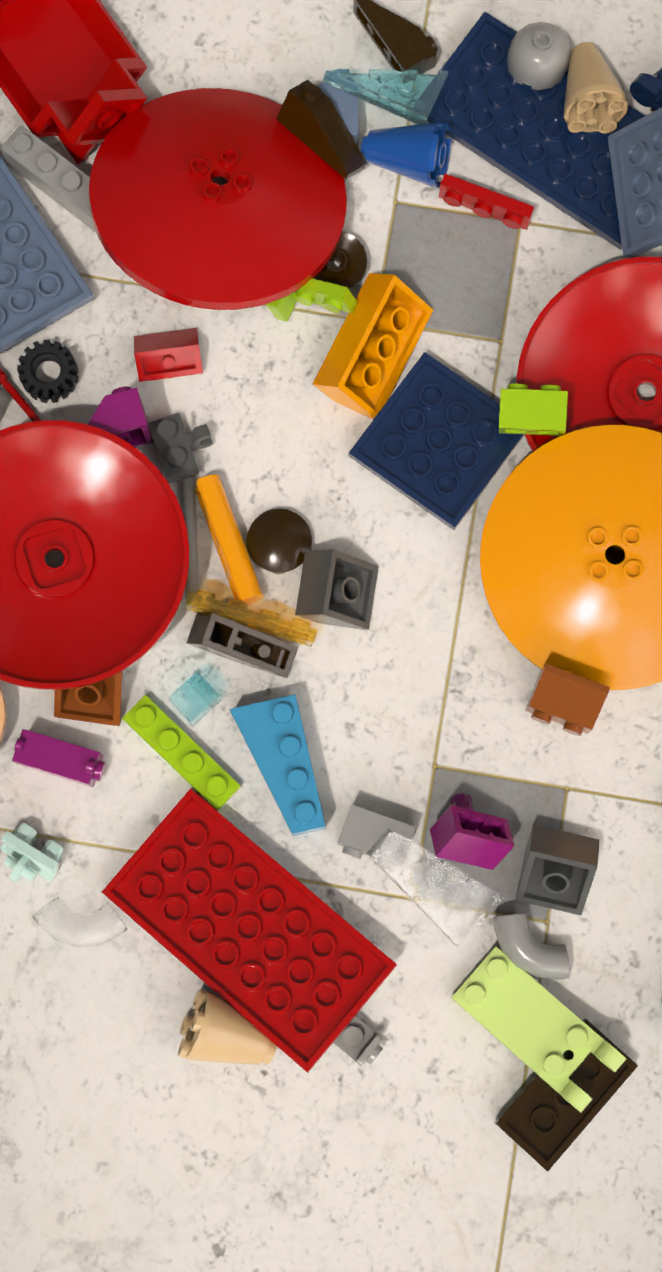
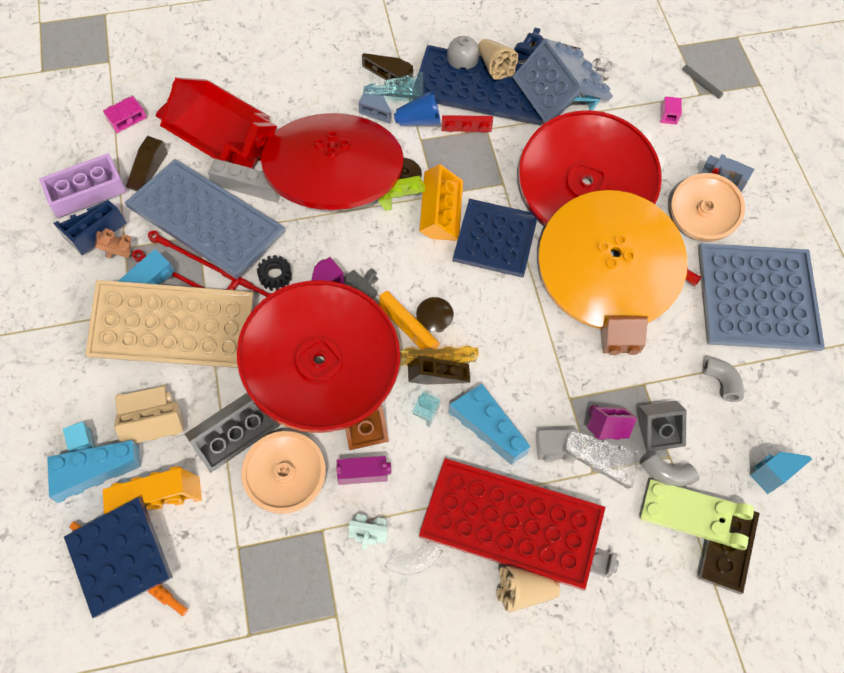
camera: 25 degrees left, 15 degrees down
(167, 354) = (336, 244): red panel -> none
(181, 752) = (429, 441): lime plate -> none
(319, 126) = (370, 113): dark brown slope -> none
(336, 589) = (476, 325): dark grey slope -> none
(533, 410) = (540, 202): lime brick -> none

